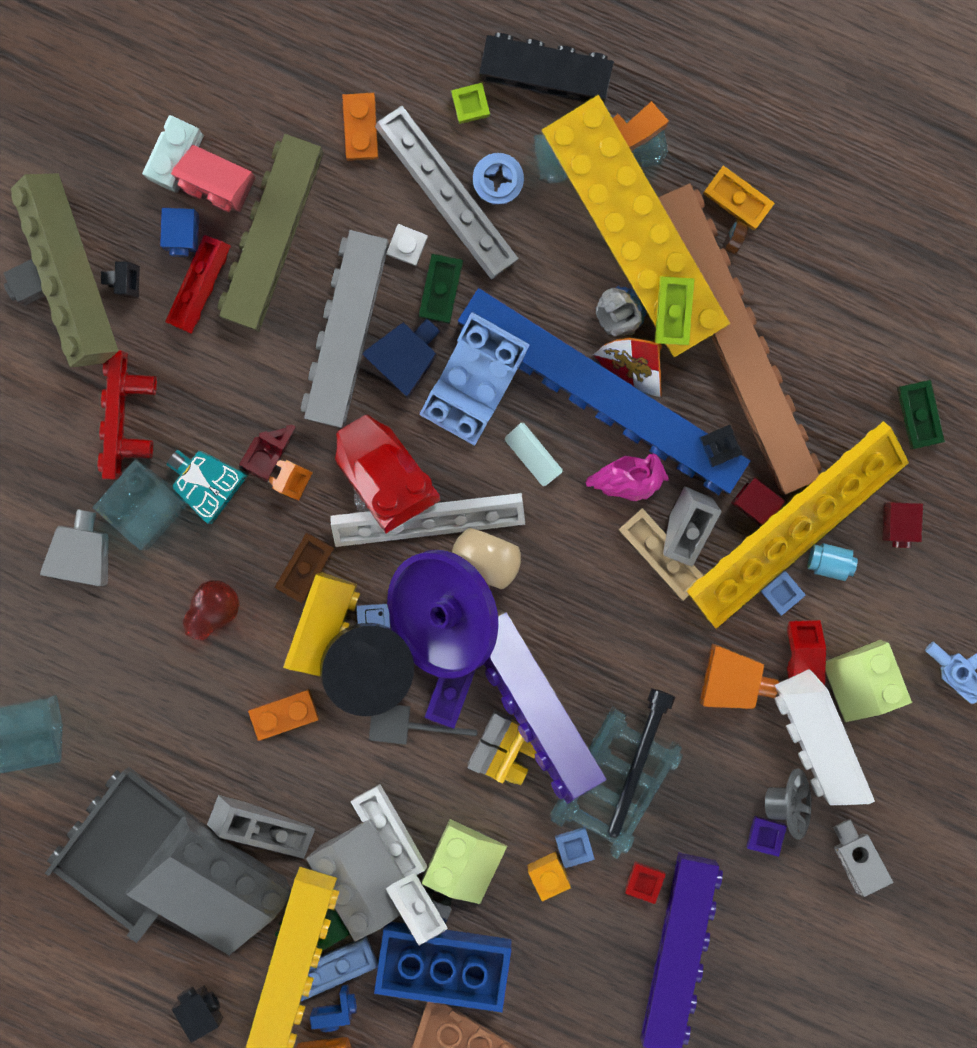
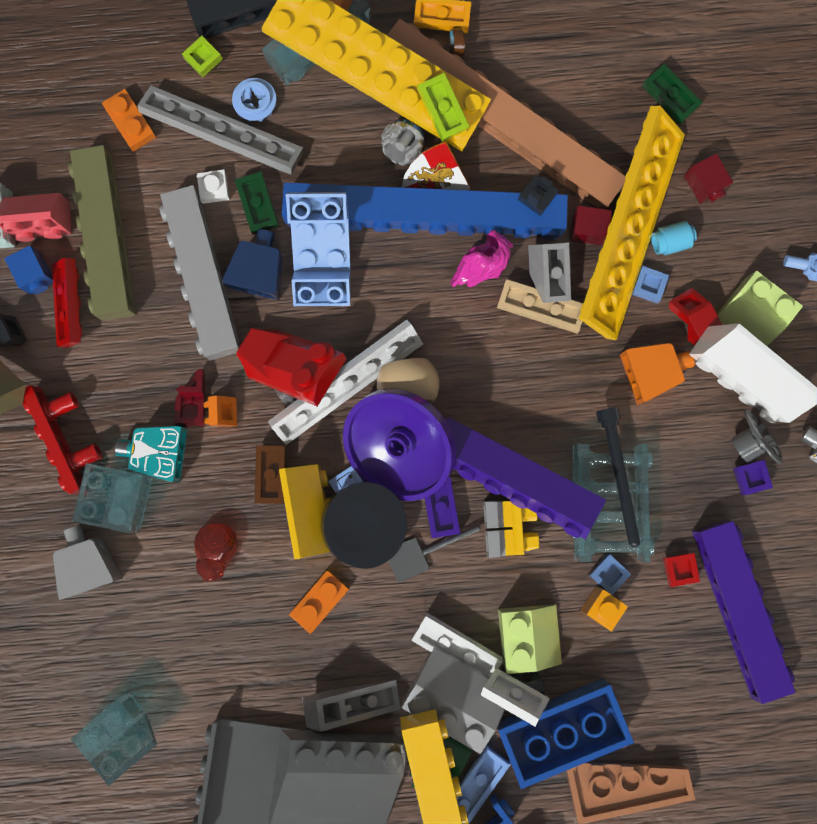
camera: 30 degrees left, 5 degrees down
(533, 454) = (399, 286): light aqua slope -> none

